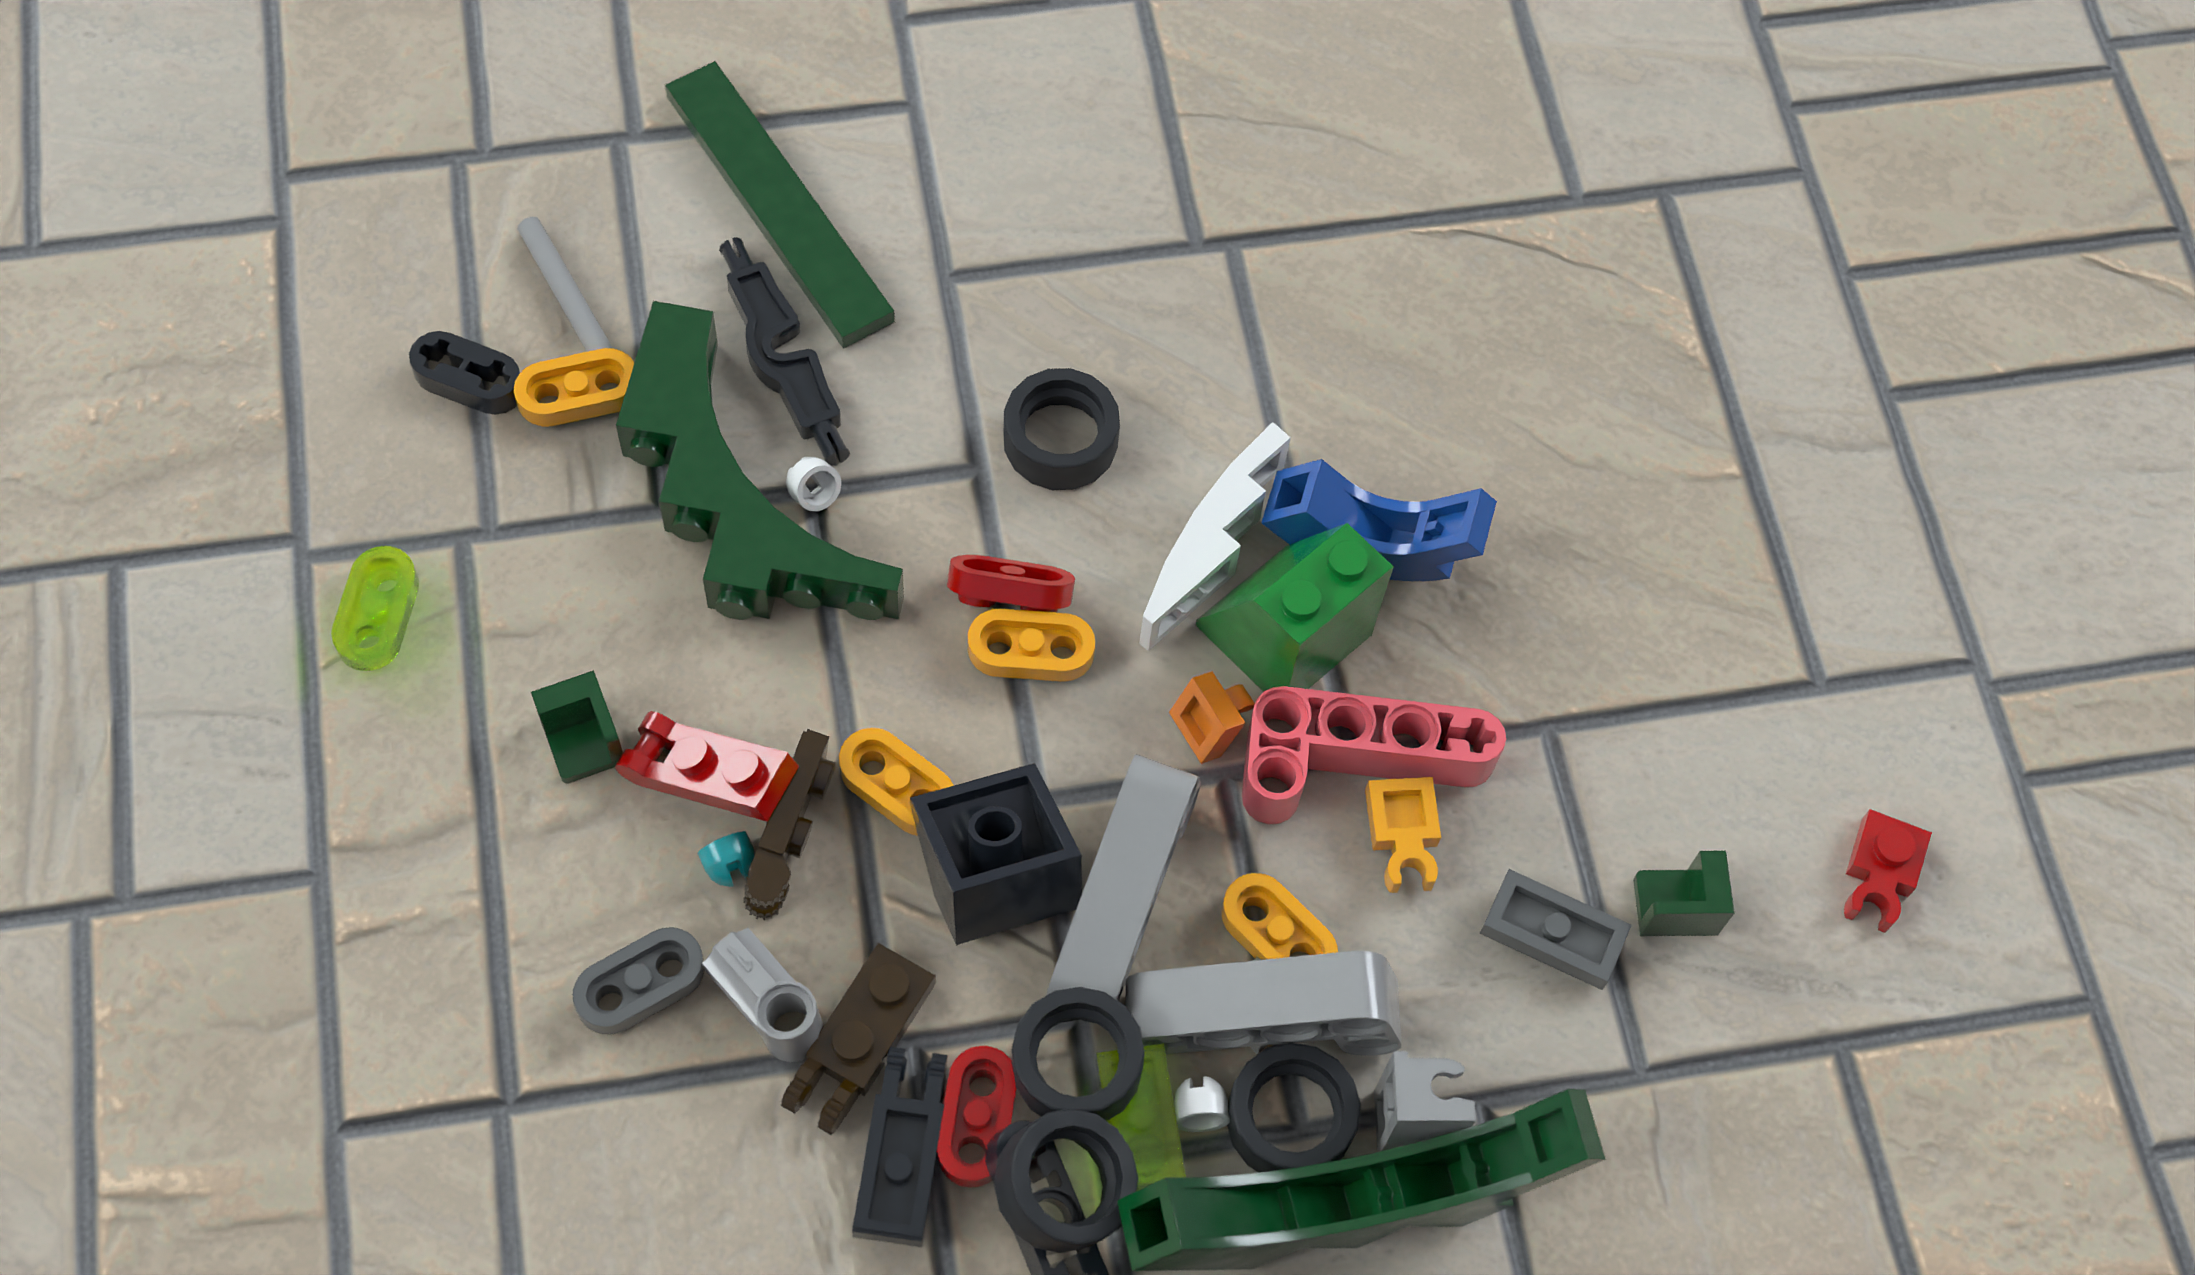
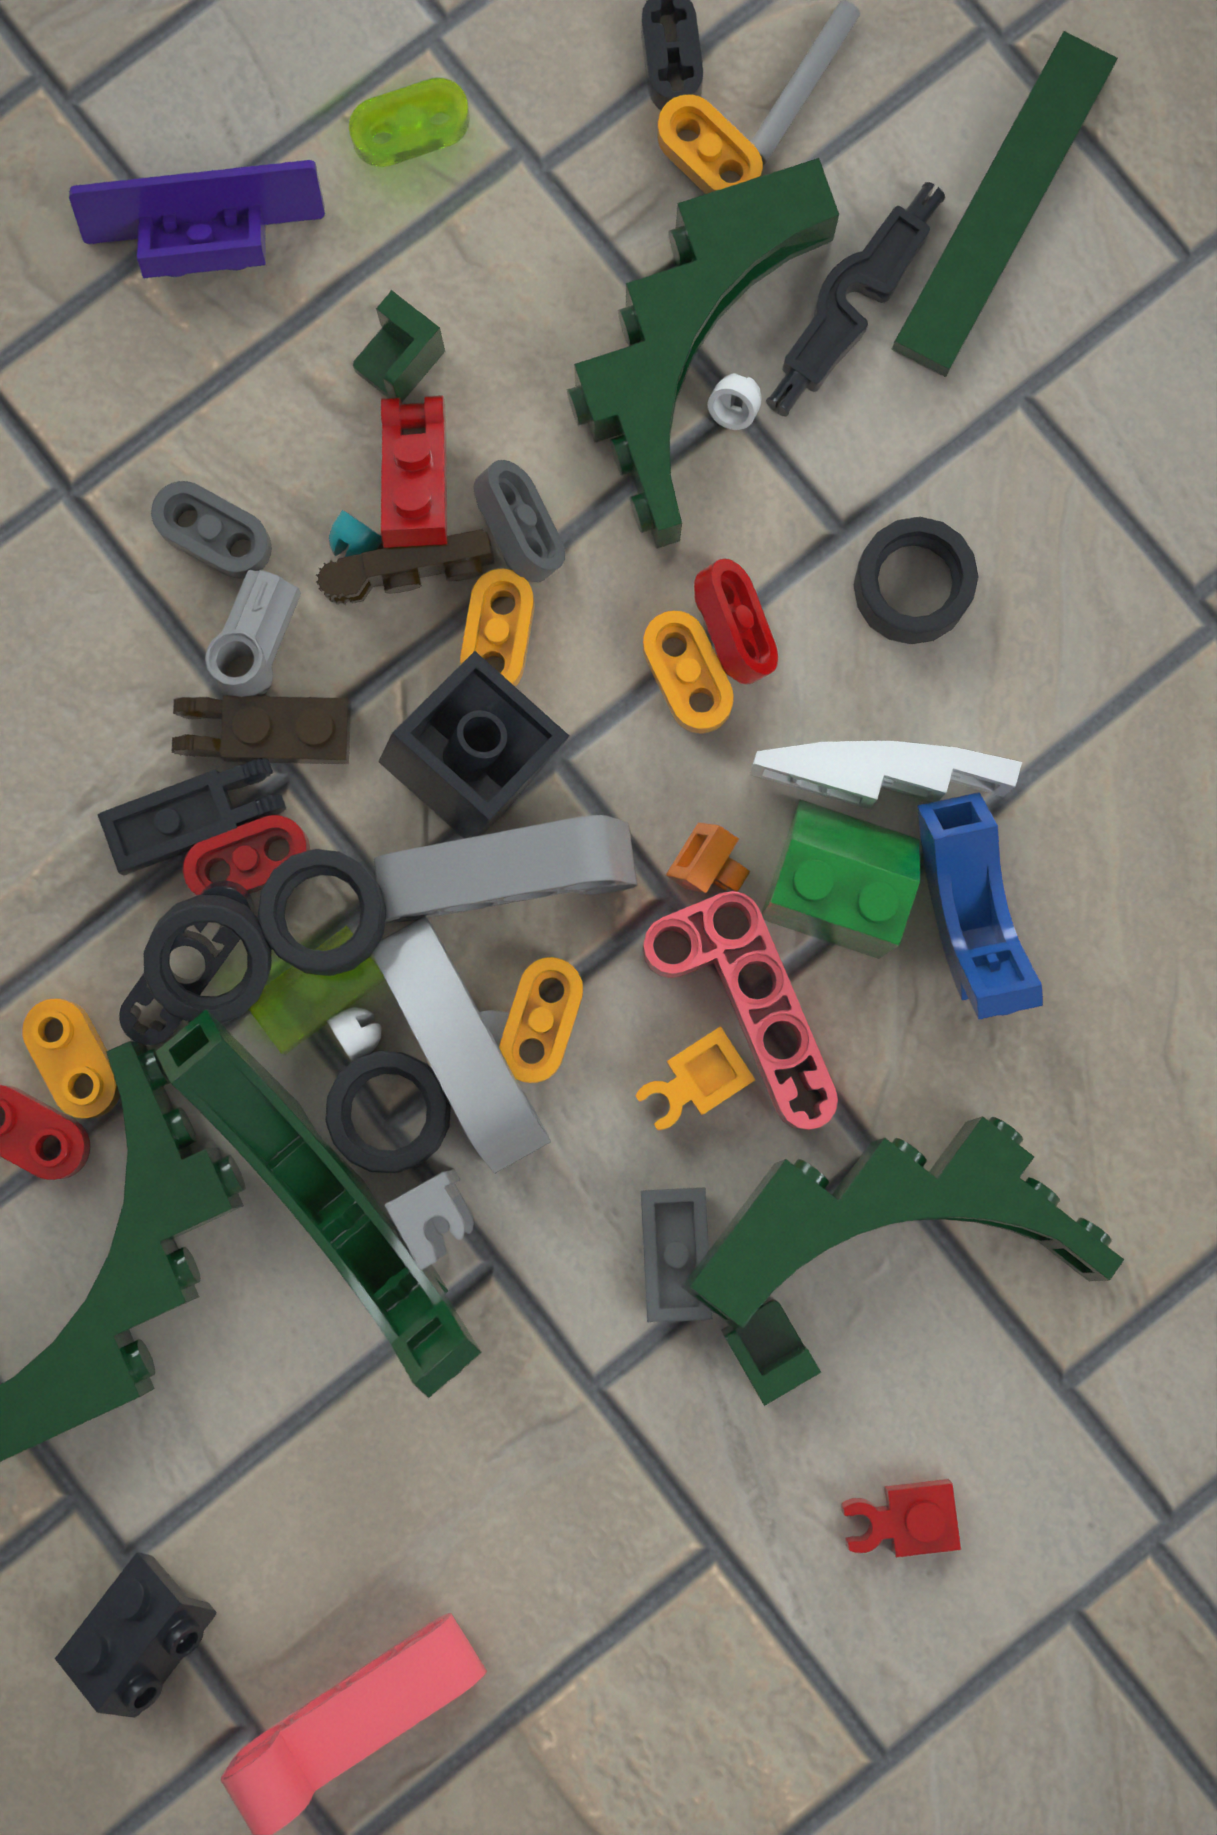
camera: 70 degrees right, 20 degrees up
(334, 833) = (199, 217): none -> dark purple bracket
(790, 707) = (519, 521): none -> dark grey plate
(1577, 796) = (973, 1181): none -> dark green arch

